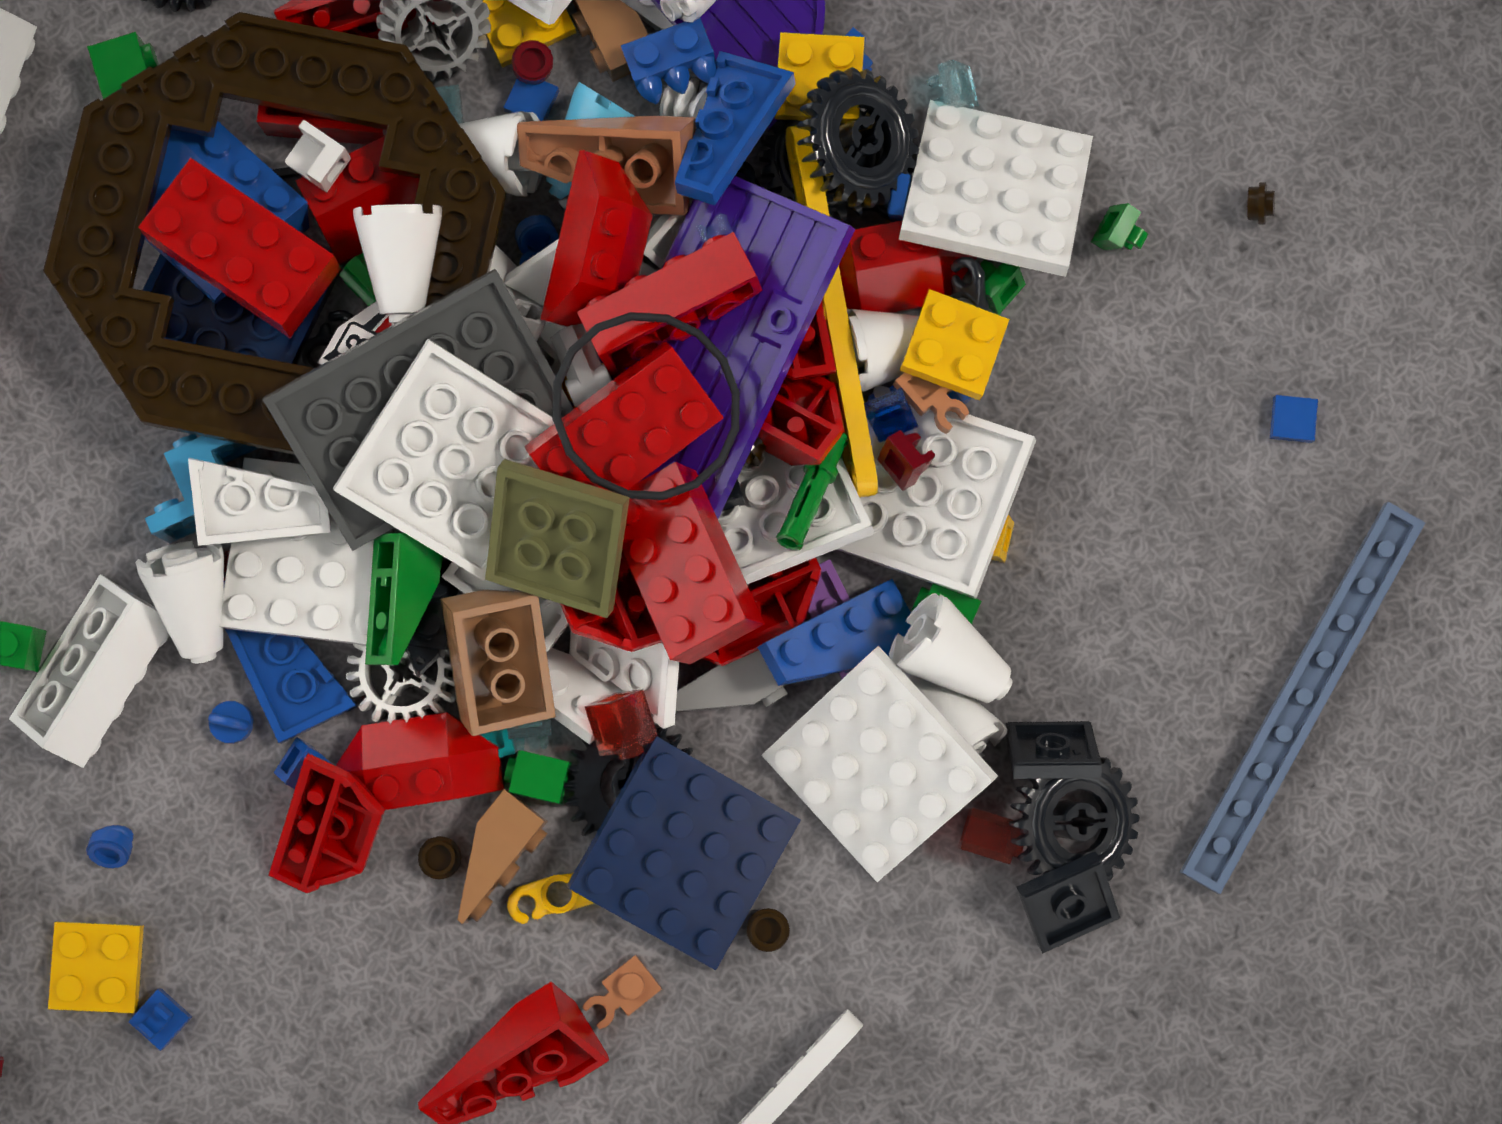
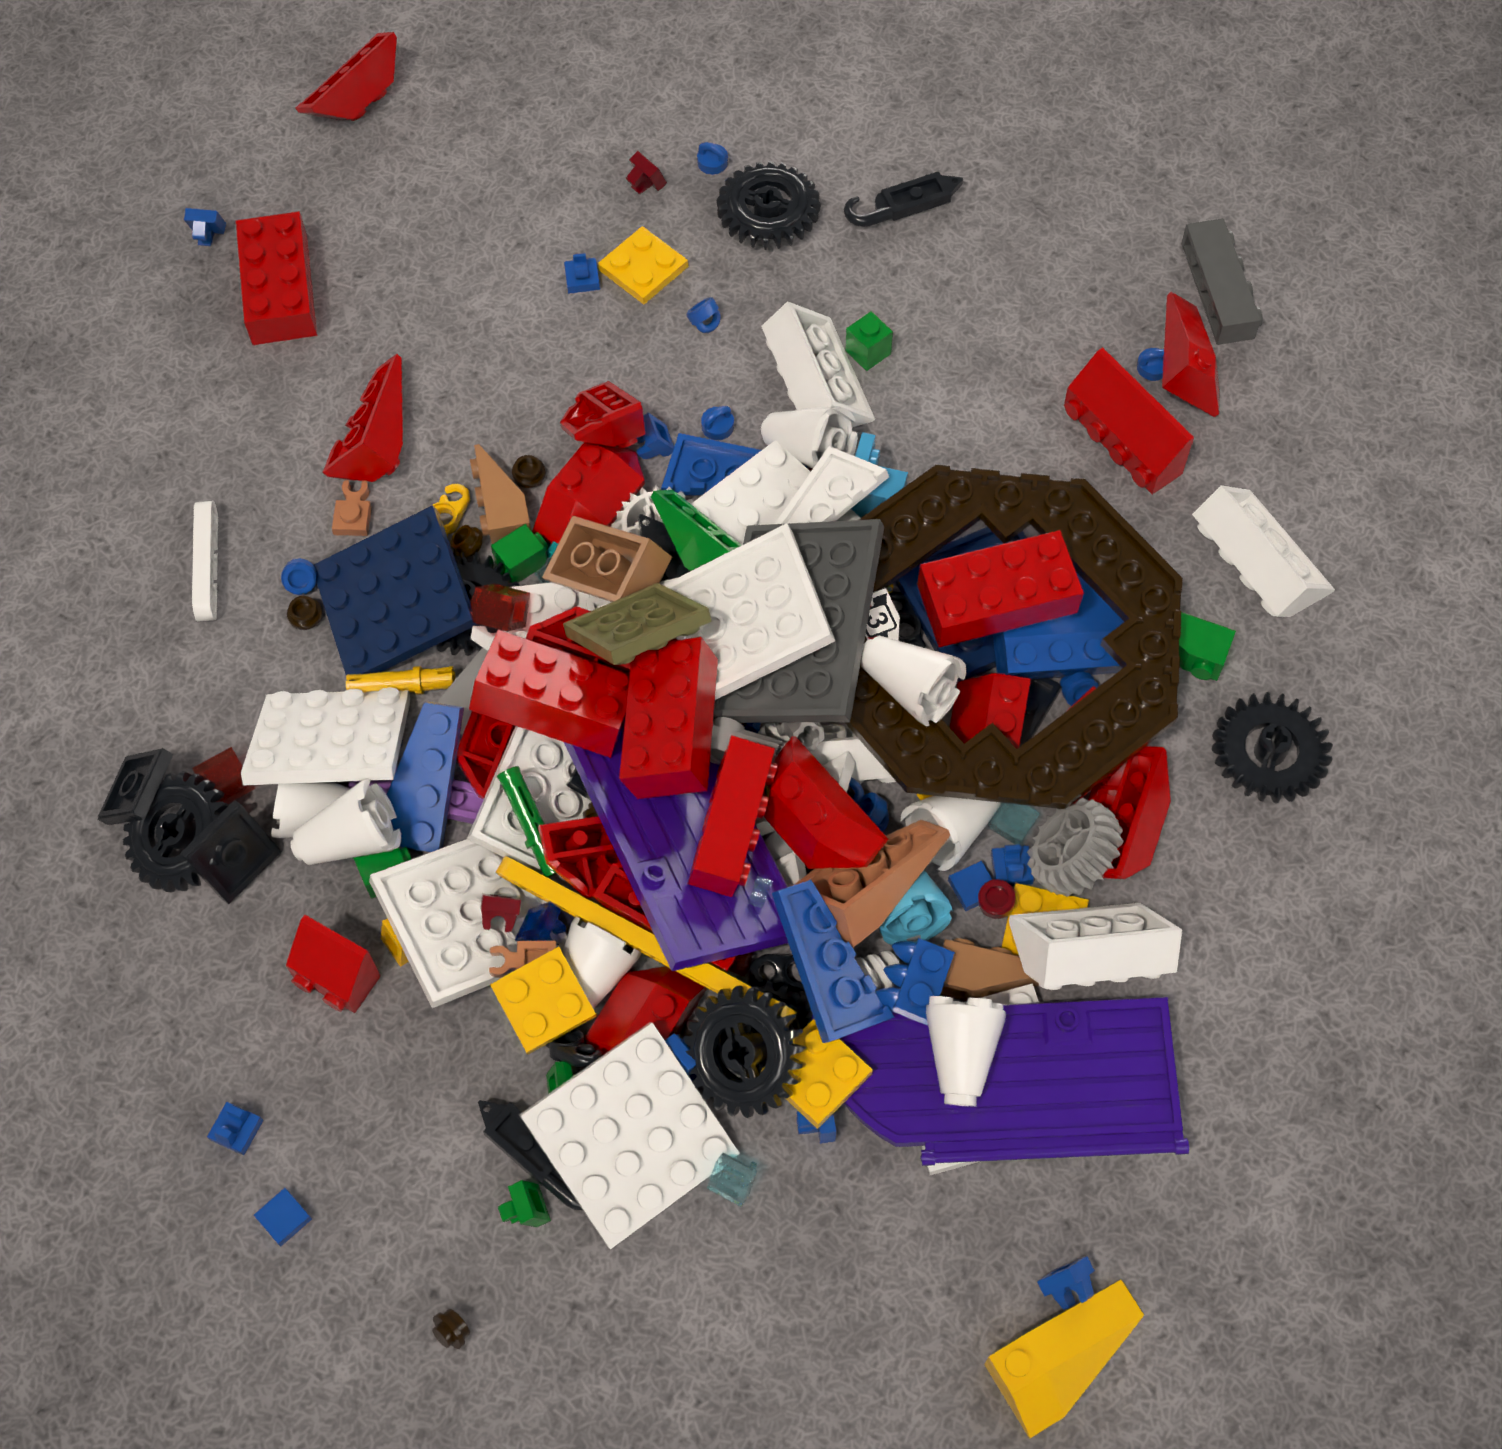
camera: 130 degrees right, 20 degrees down
(261, 145) = (1076, 685): none -> blue tile
(317, 157) = (1030, 695): white panel -> none
(485, 81) = (1011, 864): none -> blue tile
(566, 843) = (467, 540): none -> dark brown plate
(650, 317) = (699, 799): black piece -> none
(737, 969) = (299, 576): none -> blue tile
(759, 768) = (414, 680): none -> yellow pin
(1072, 564) = (331, 966): none -> red slope
(1073, 295) = (513, 1137): none -> black plate
(1263, 526) = (235, 1128): none -> blue tile
(1302, 698) = (105, 1060): sand blue plate -> none

